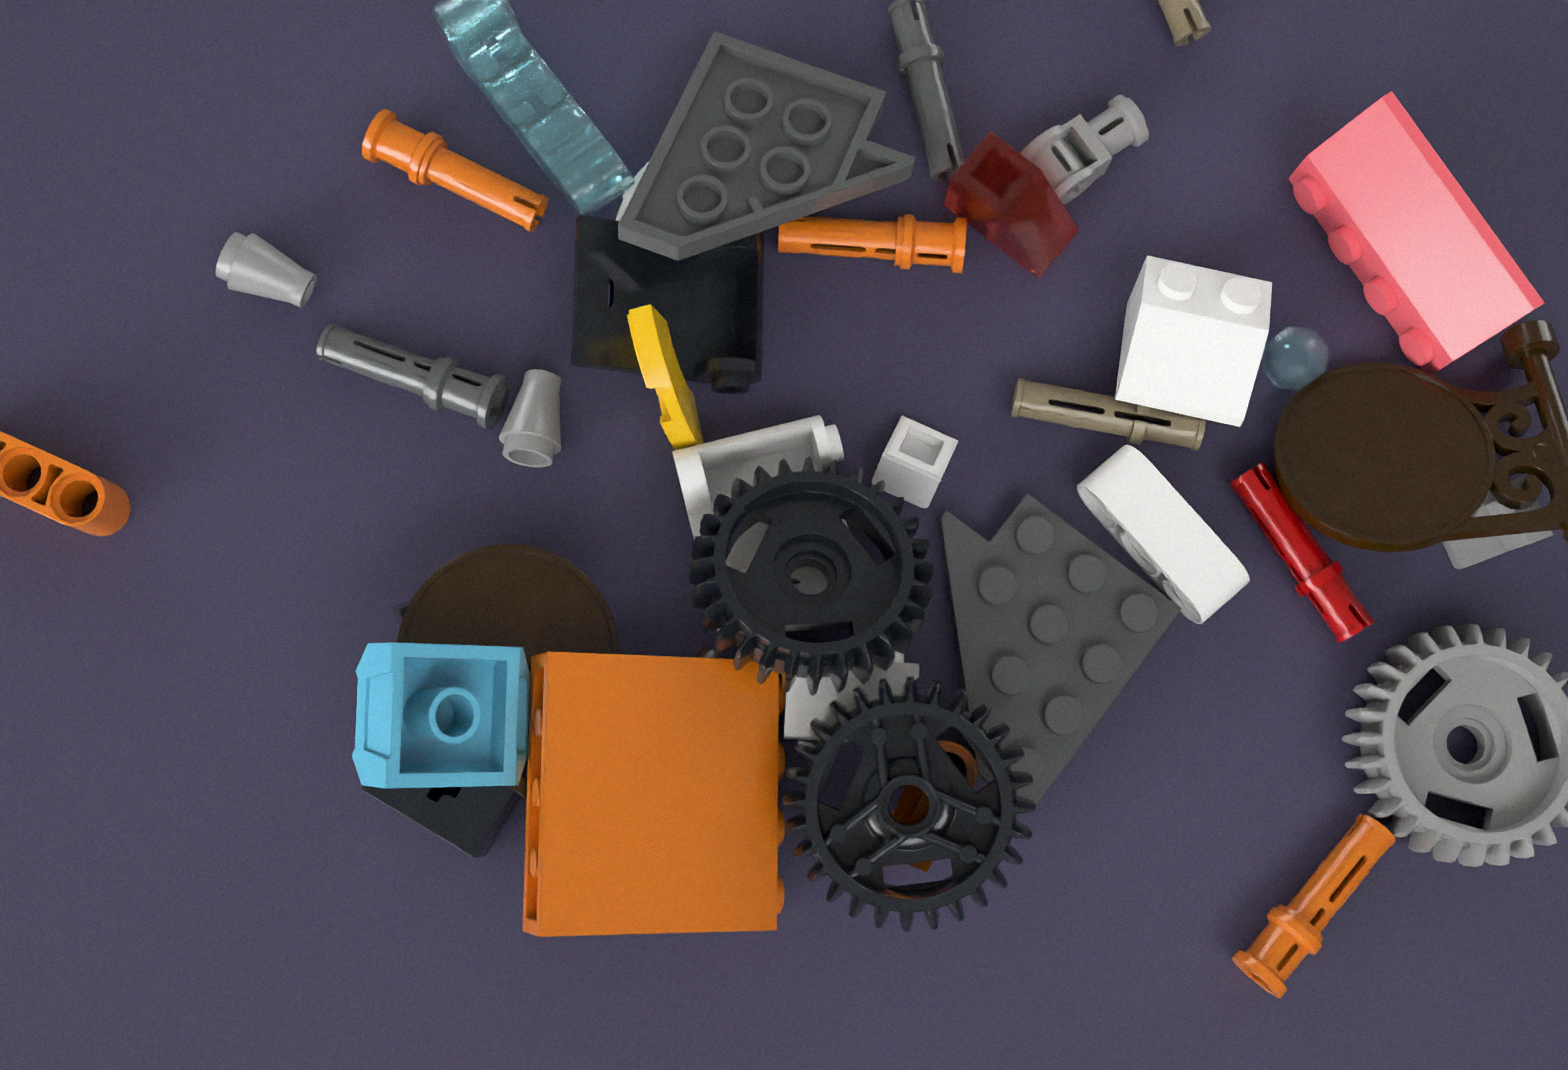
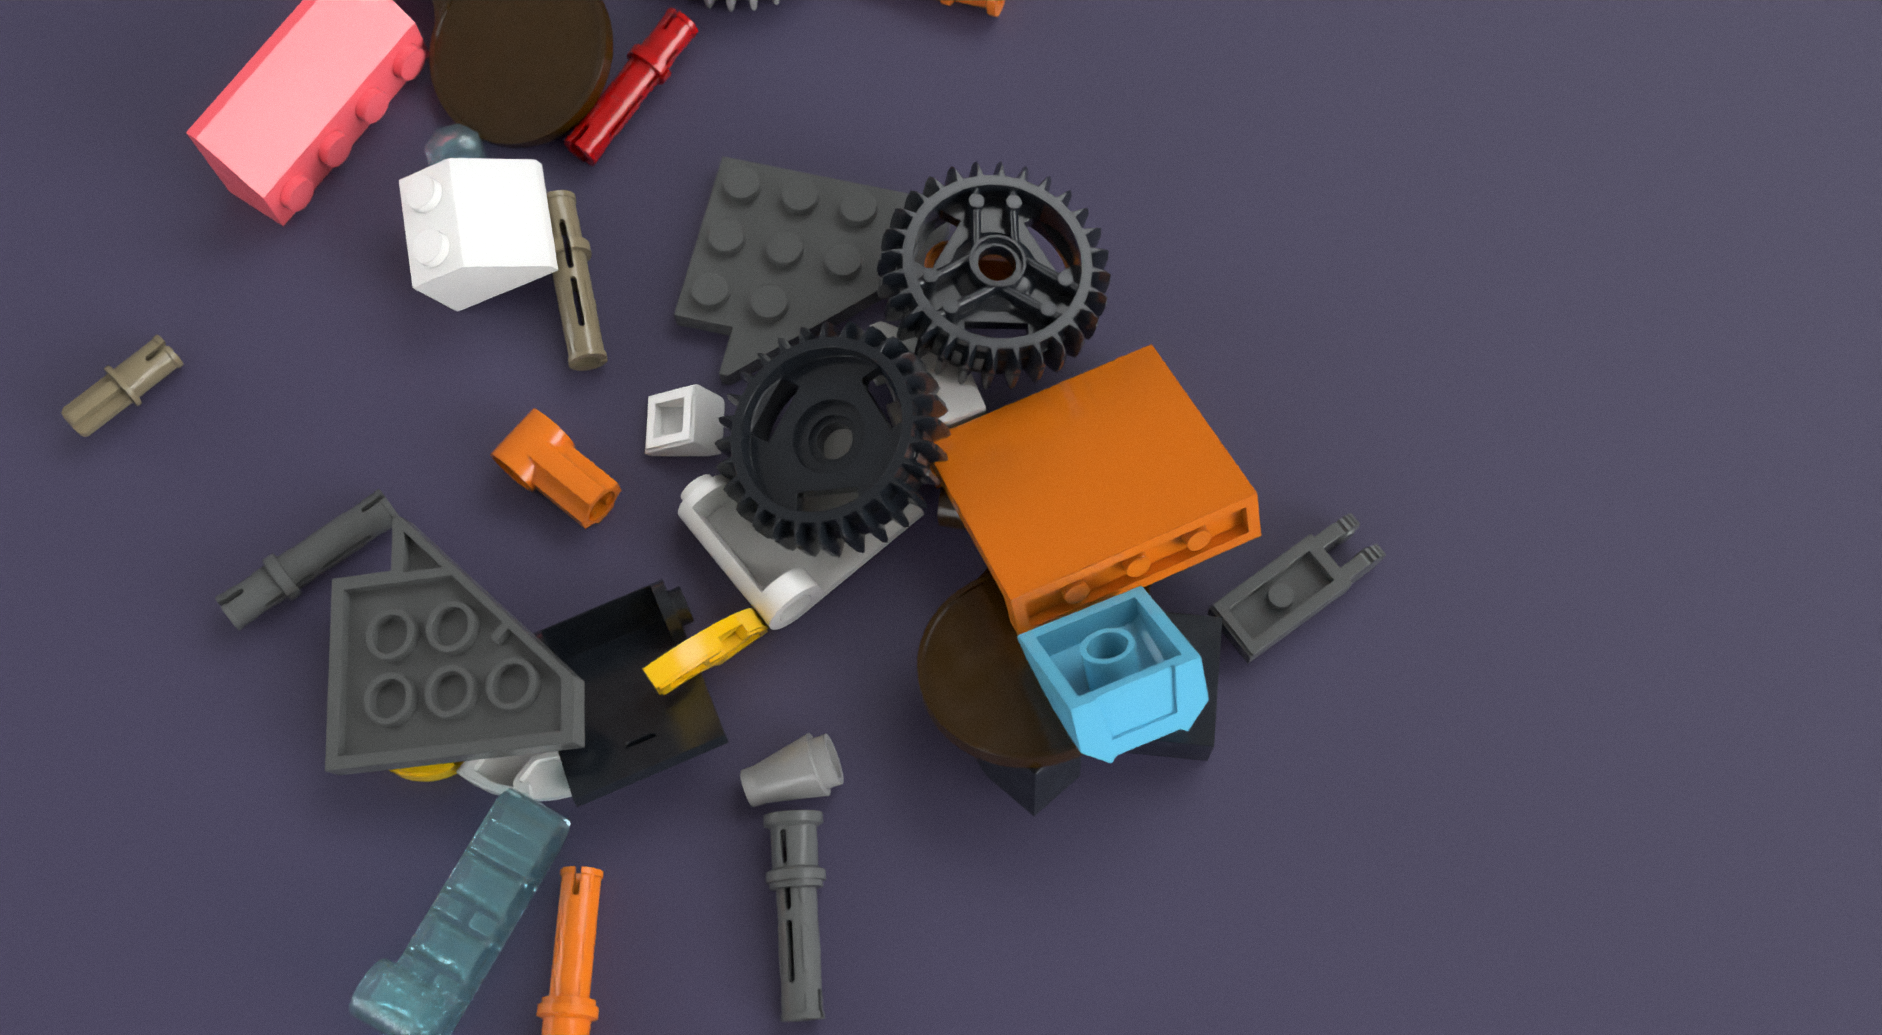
camera: 110 degrees left, 10 degrees down
(484, 948) = (1291, 589): none -> dark grey hinge
(902, 241) = (476, 517): orange pin -> none
(931, 318) = (545, 459): none -> orange piece
(1011, 205) = (403, 433): clear red slope -> none
(1082, 150) = (324, 396): light grey connector -> none
(1163, 534) = (662, 194): white beam -> none

